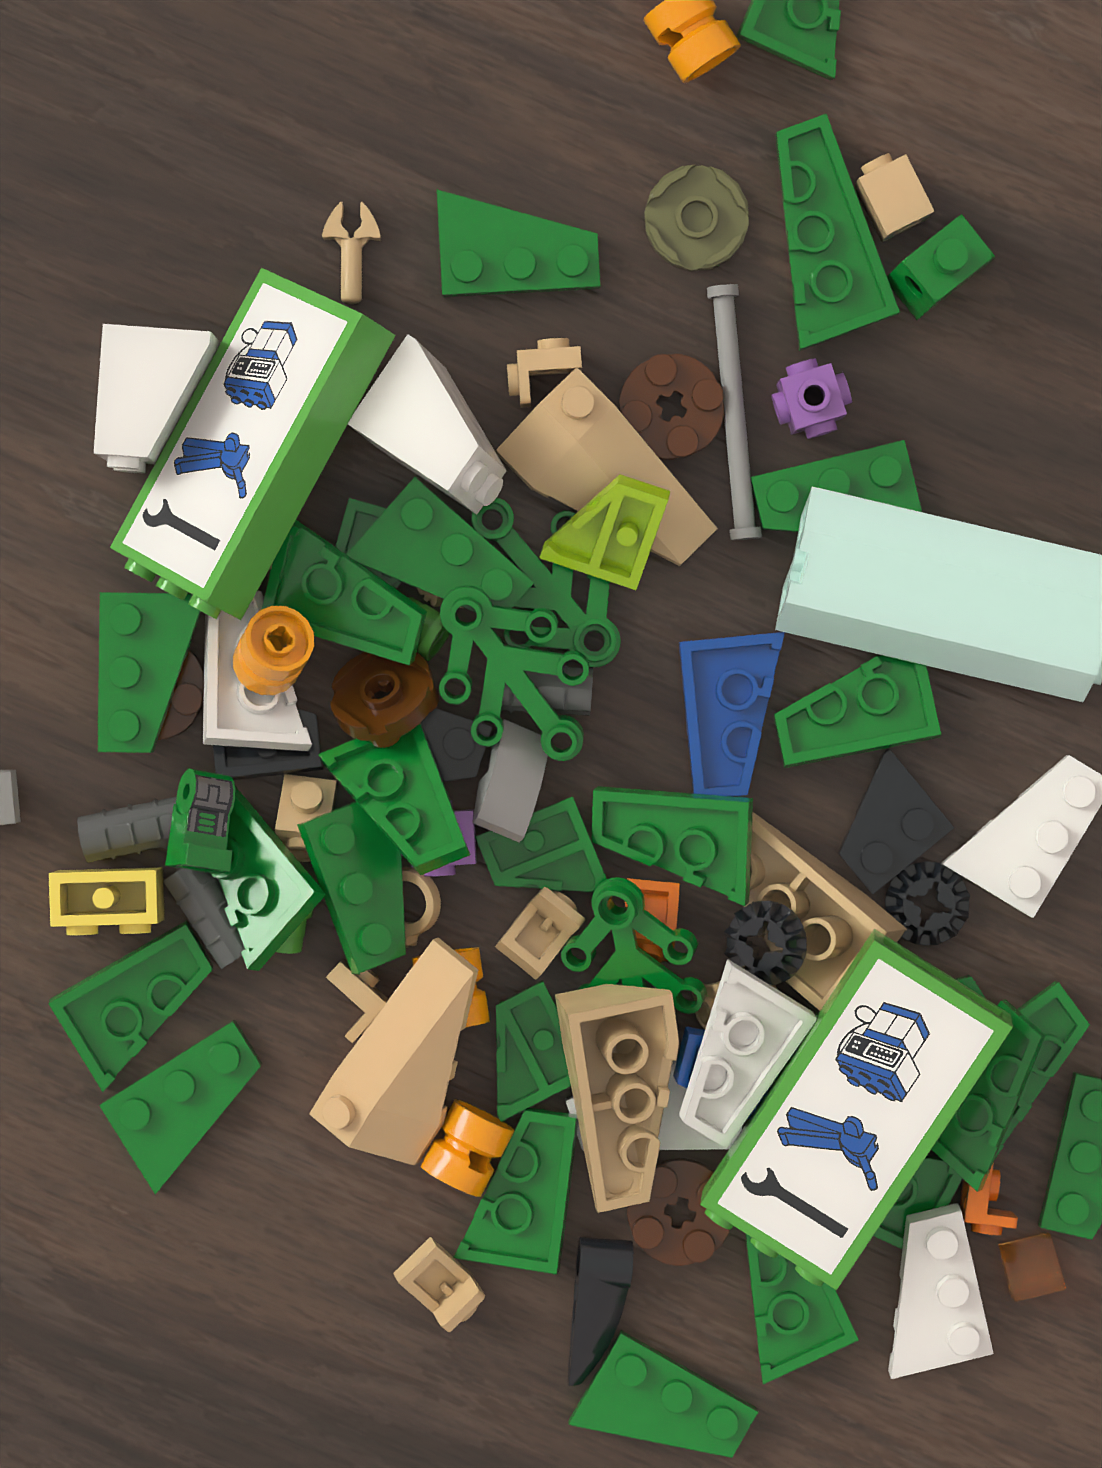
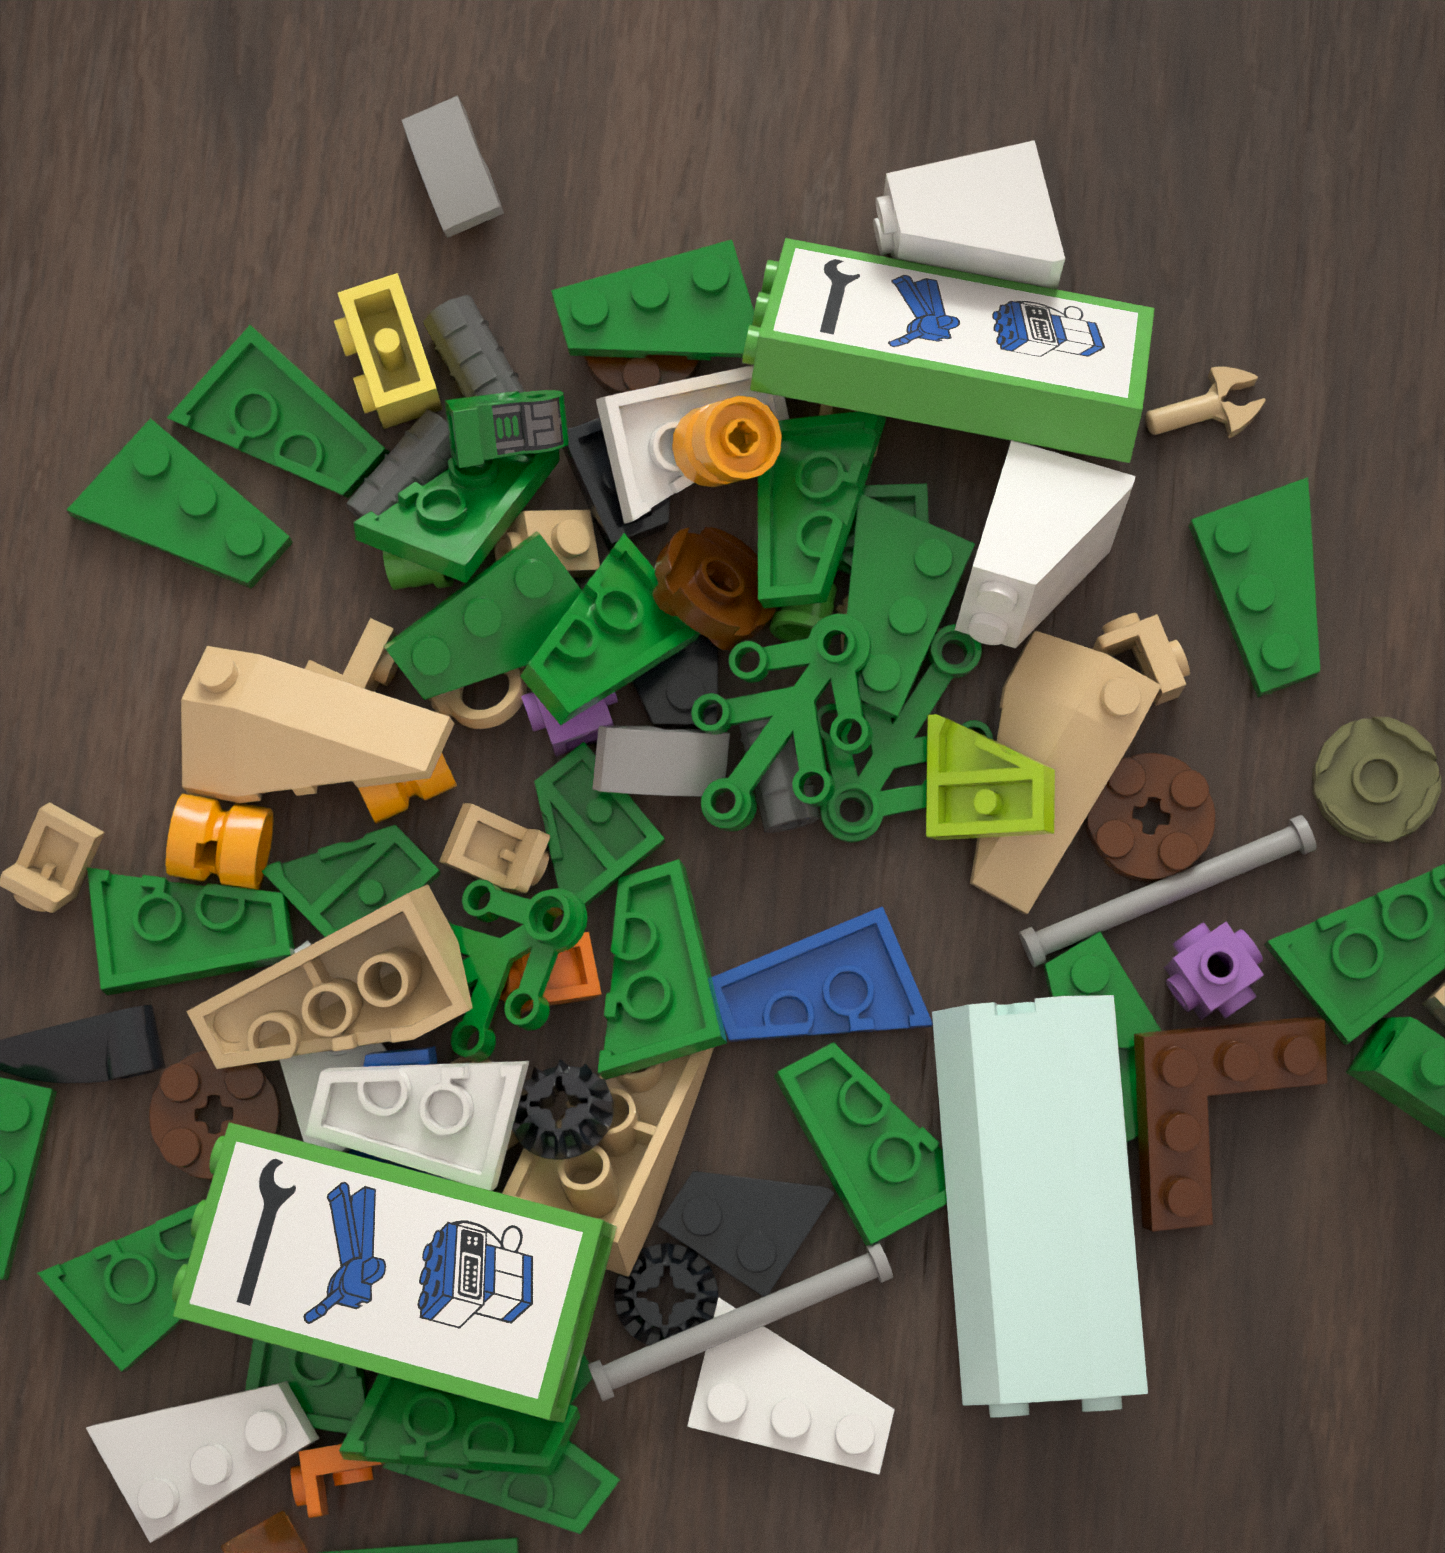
camera: 75 degrees right, 10 degrees down
(880, 441) = (1172, 1089): none -> reddish brown plate
(967, 853) = (740, 1321): none -> light grey bar

